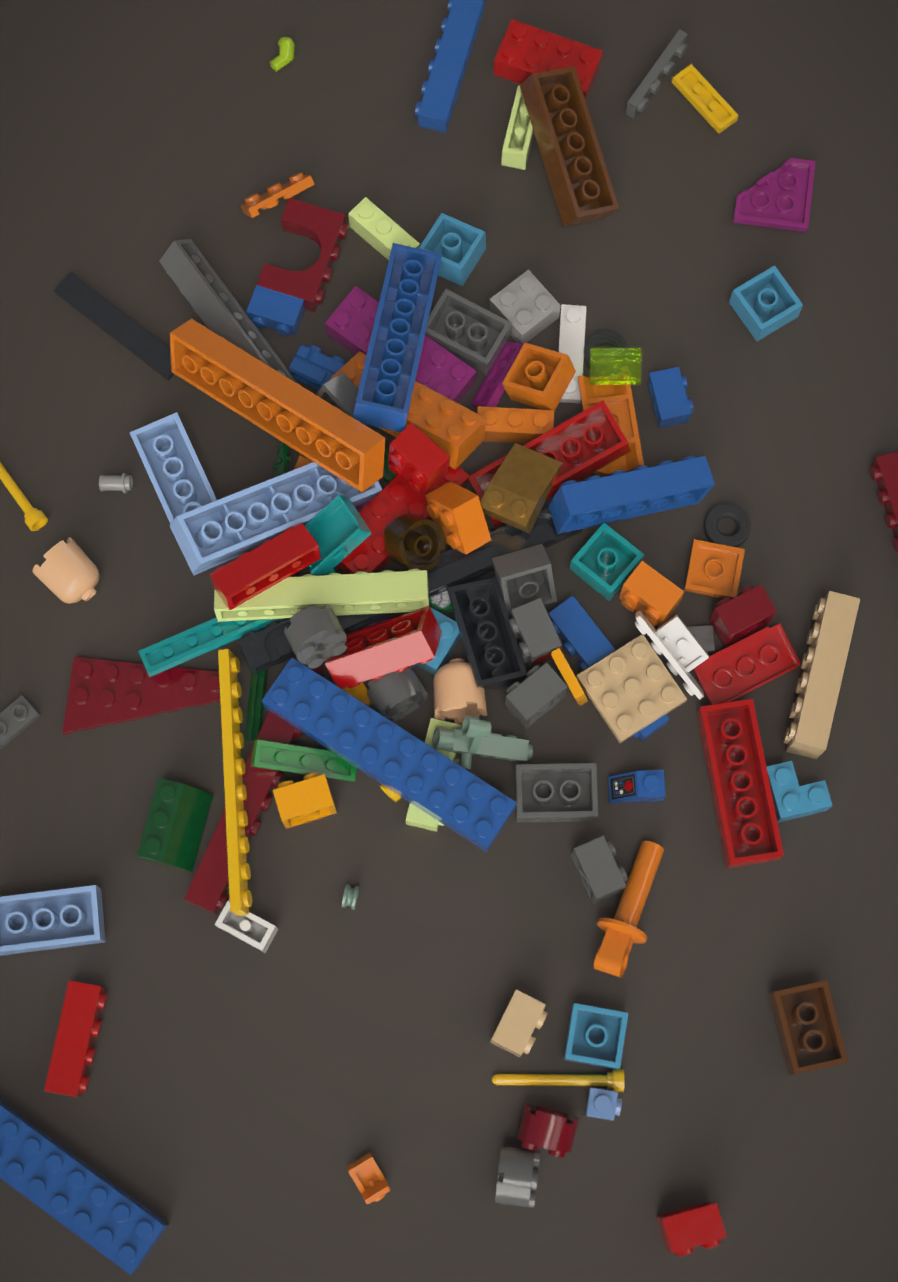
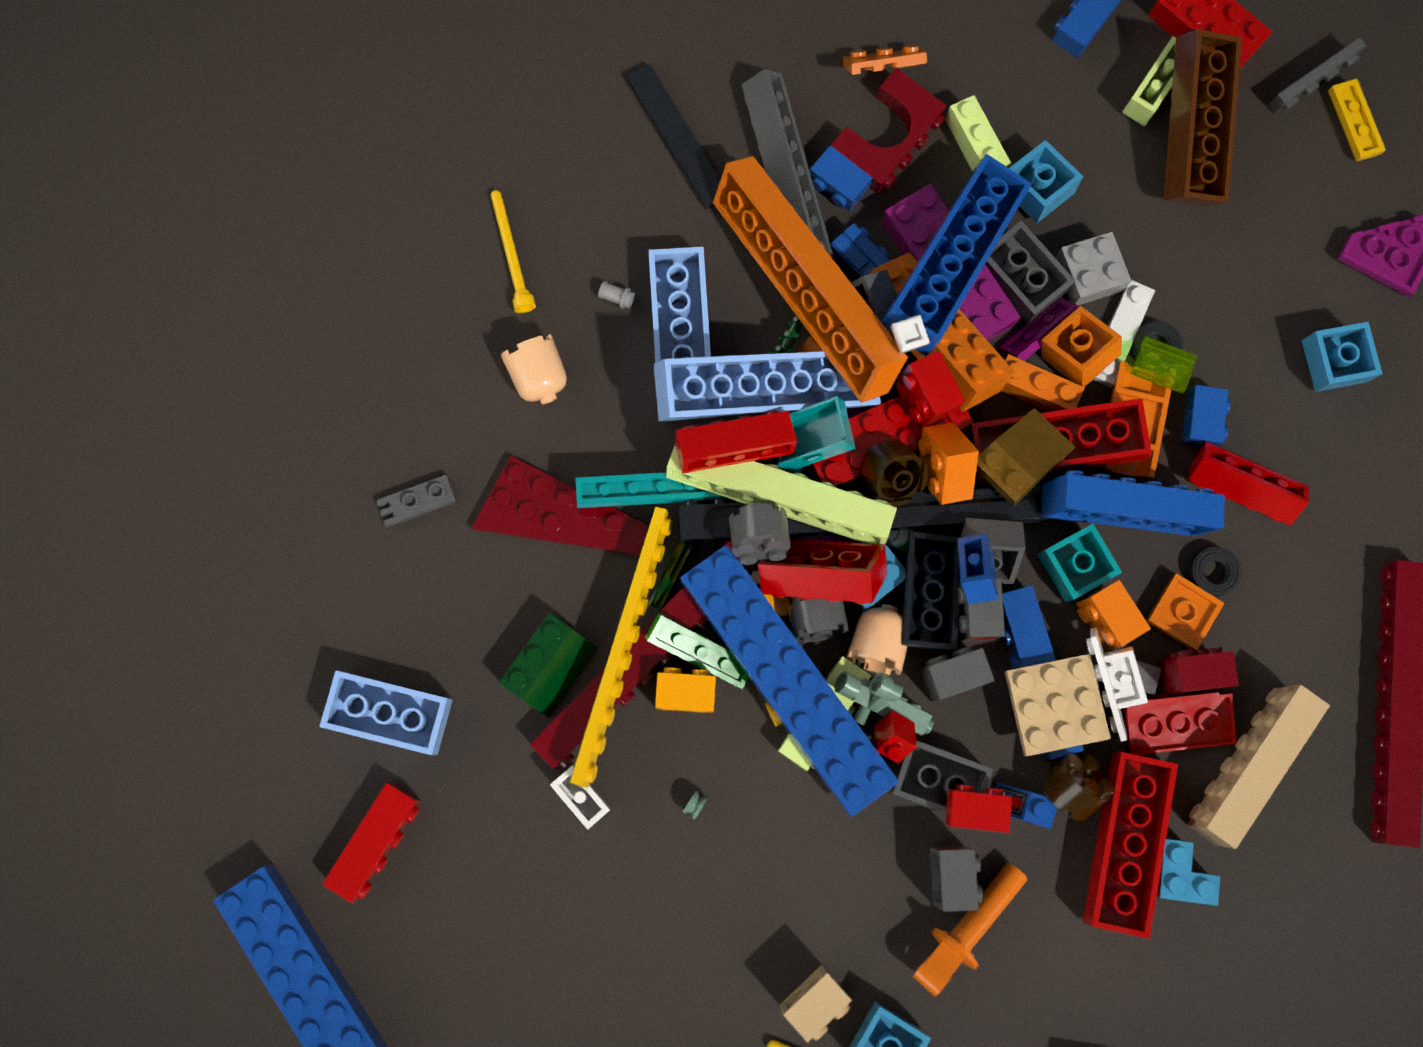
camera: 15 degrees right, 5 degrees up
(379, 417) = (910, 334): none -> white tile
(501, 768) = (895, 736): none -> red brick
(515, 595) = (977, 568): none -> blue brick
(569, 677) = (998, 668): light orange tile -> none
(594, 800) = (978, 810): none -> red brick
(675, 750) = (1078, 786): none -> dark brown brick
(726, 440) = (1248, 483): none -> red brick

